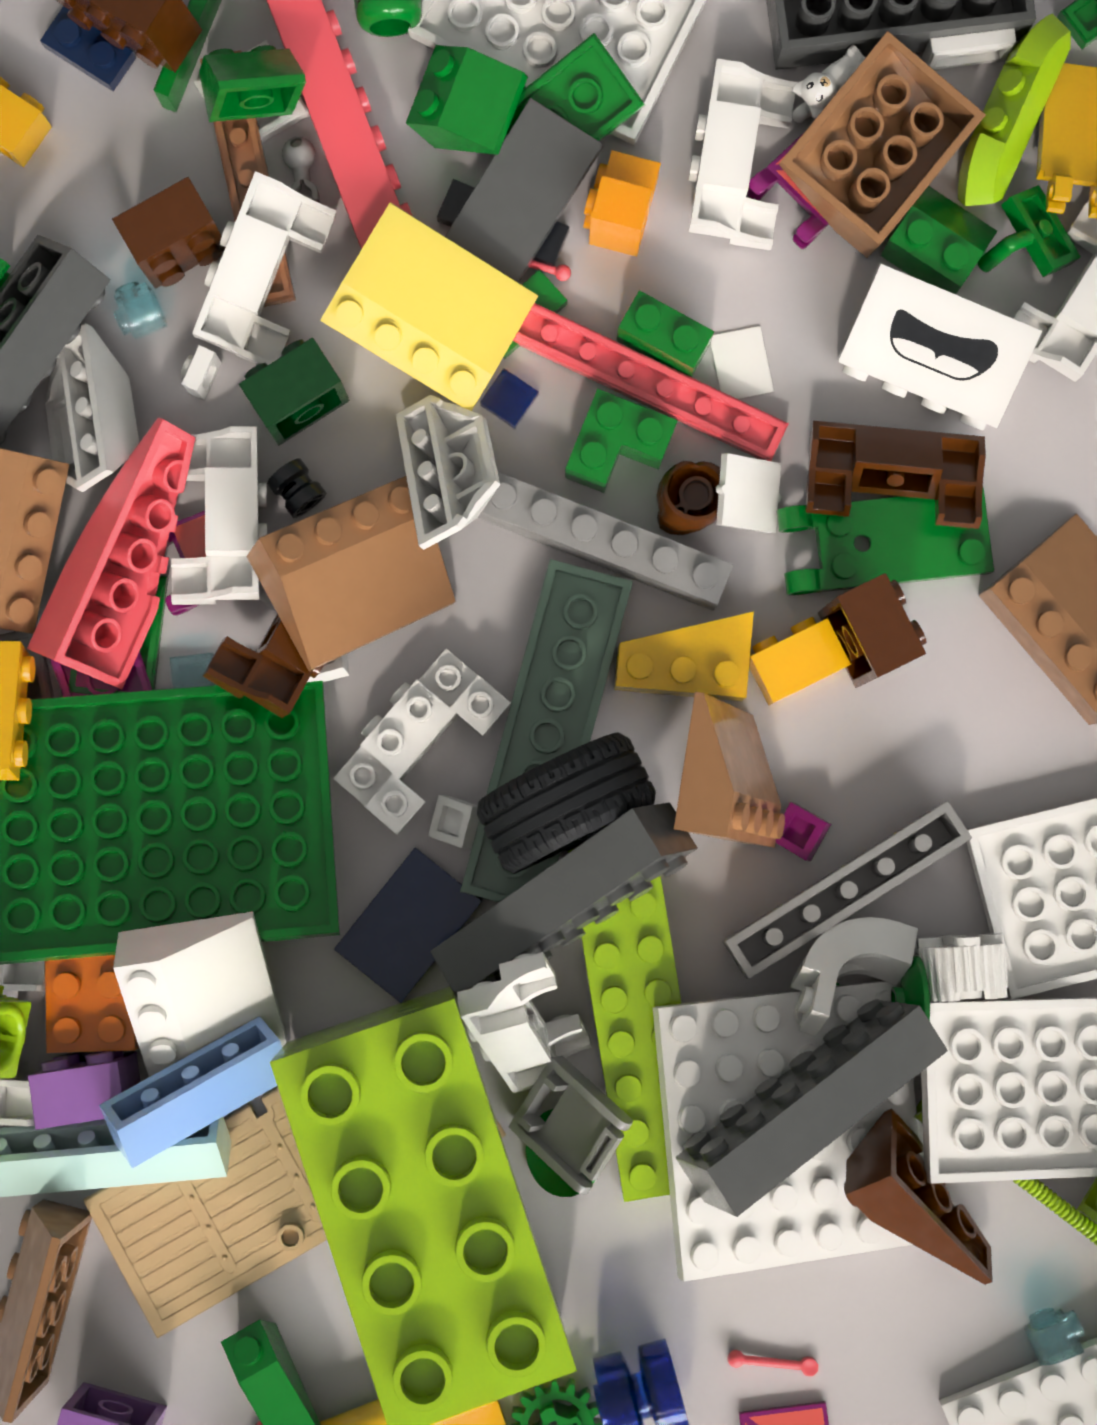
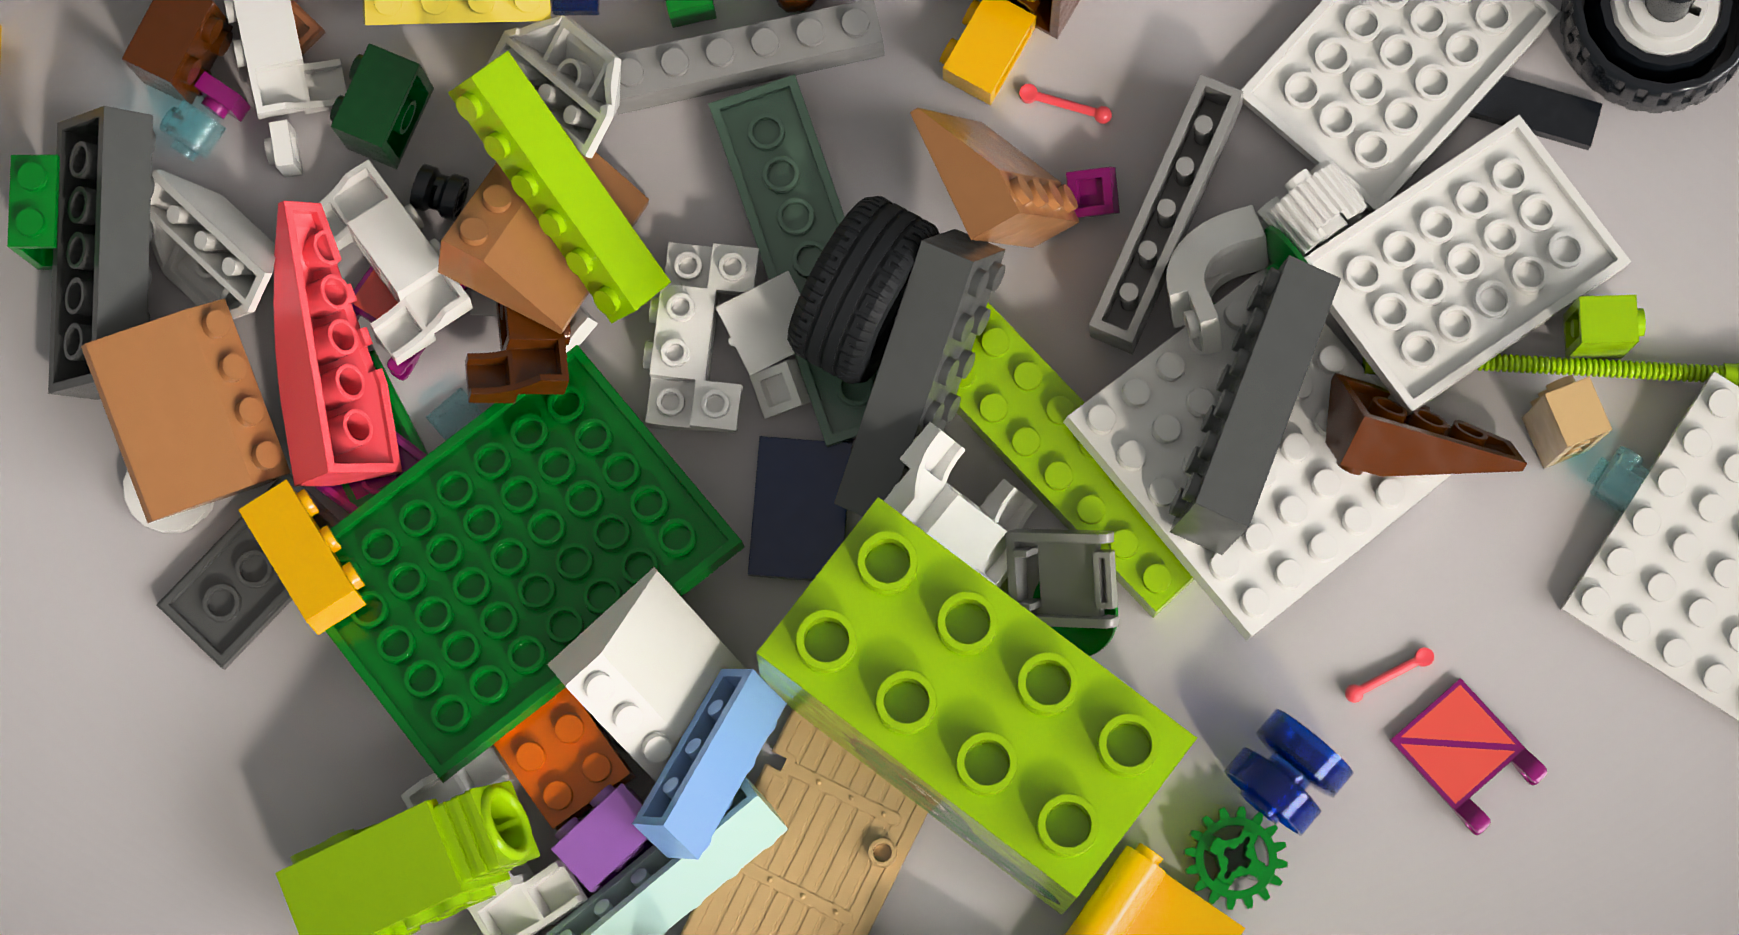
camera: 20 degrees left, 5 degrees down
(177, 299) = (220, 98): none -> magenta plate
(382, 554) = (559, 187): none -> lime brick
(476, 763) = (761, 321): none -> white piece
(689, 660) = (878, 116): yellow wedge -> none
(805, 717) = (1029, 94): none -> coral hinge
(1046, 1275) = (1566, 420): none -> tan brick

